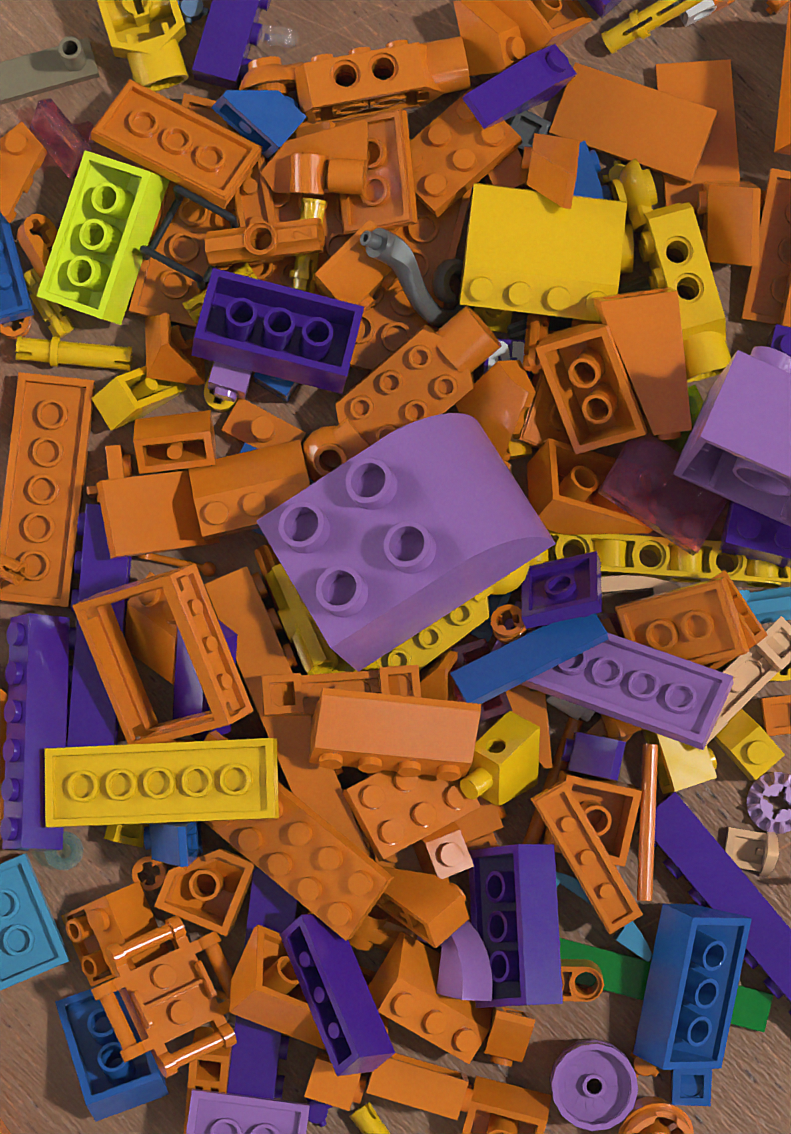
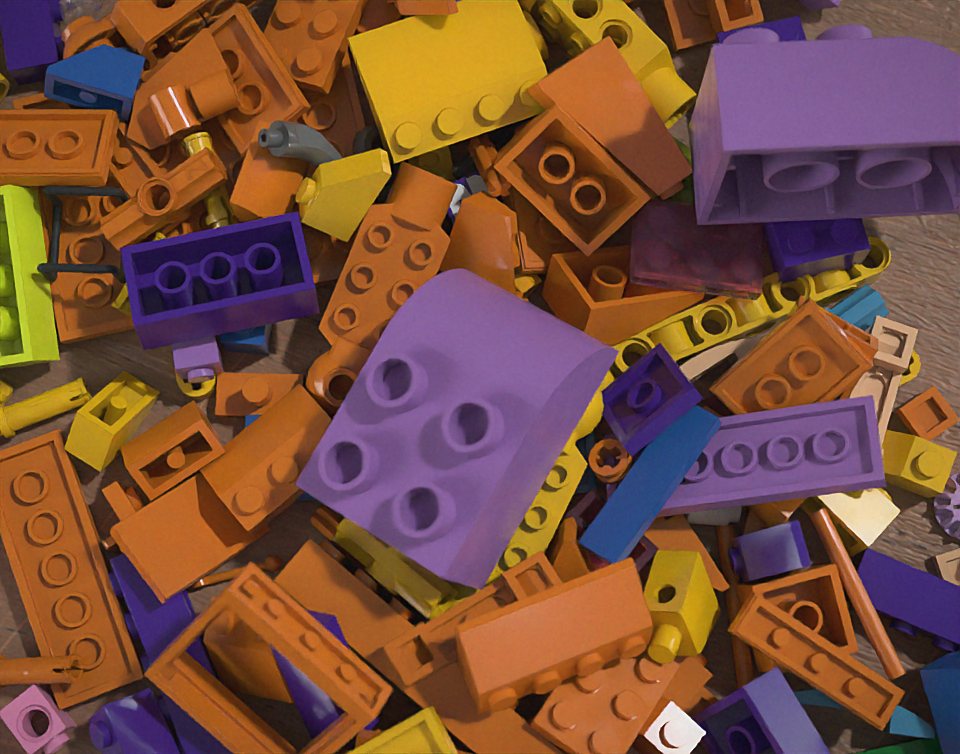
camera: 25 degrees left, 5 degrees down
(169, 354) = (122, 363): orange slope -> none
(407, 308) = (343, 192): none -> yellow slope

